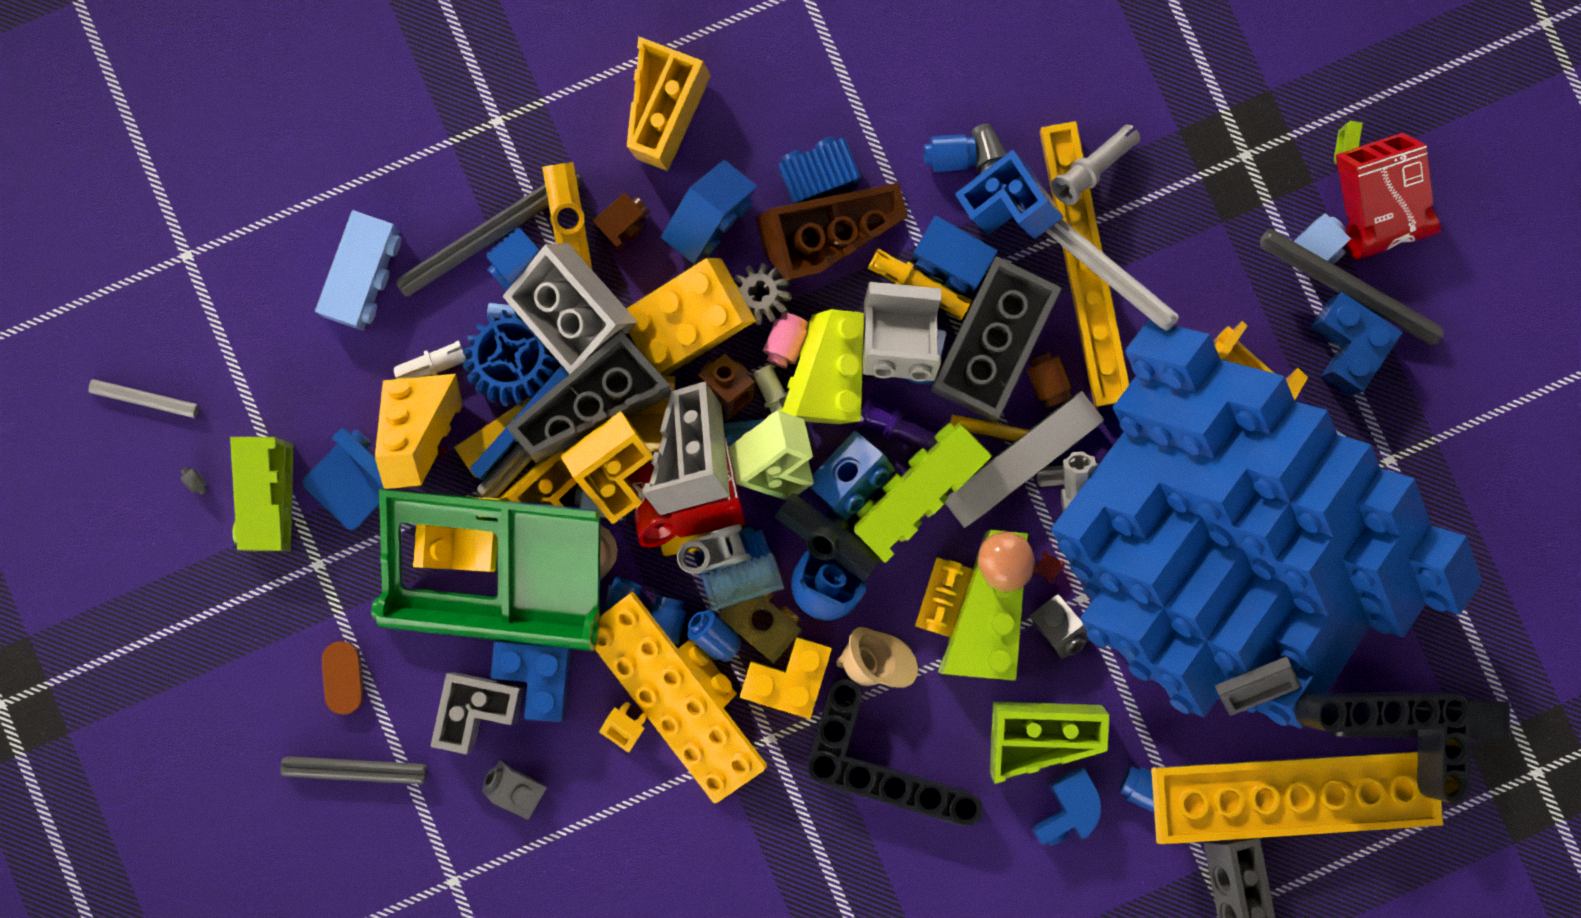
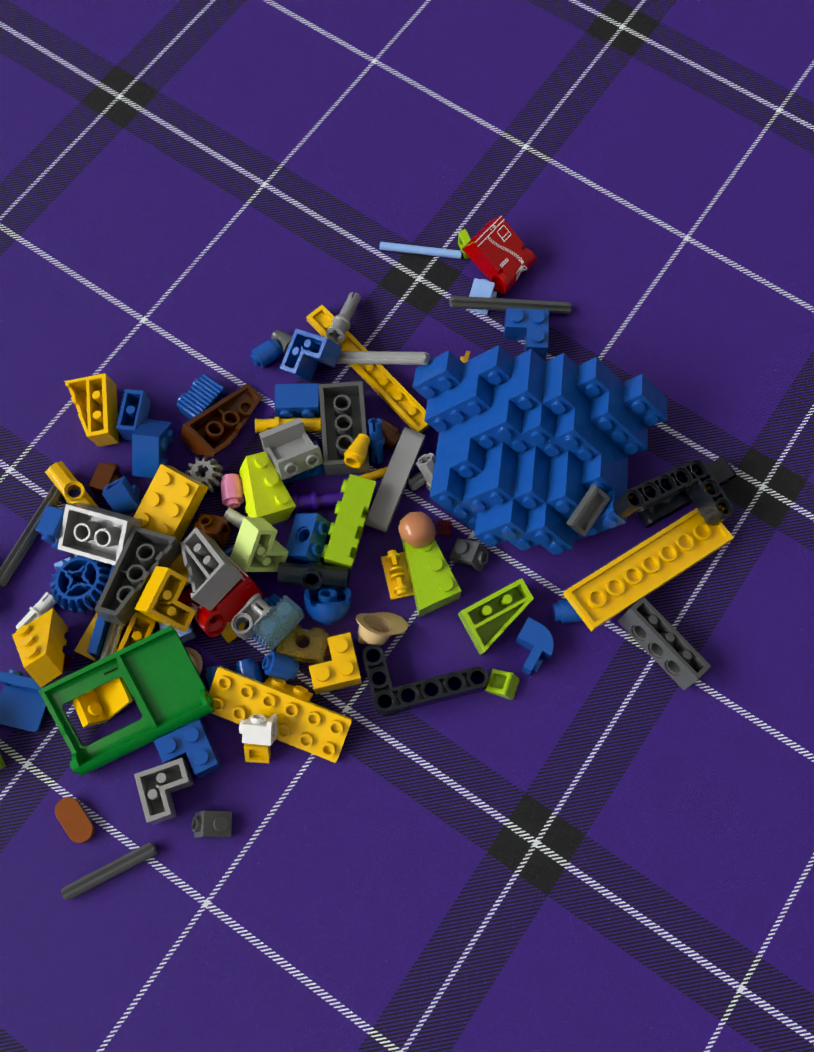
camera: 25 degrees left, 15 degrees down
(630, 267) = (122, 496): none -> blue brick
(638, 709) = (259, 729): none -> white brick
(710, 143) = (133, 412): none -> blue brick
(989, 398) = (357, 451): none -> yellow cone
(996, 831) = (502, 684): none -> lime slope
(1029, 387) = (377, 440): none -> blue pin
(1275, 111) = (420, 250): none -> light blue bar

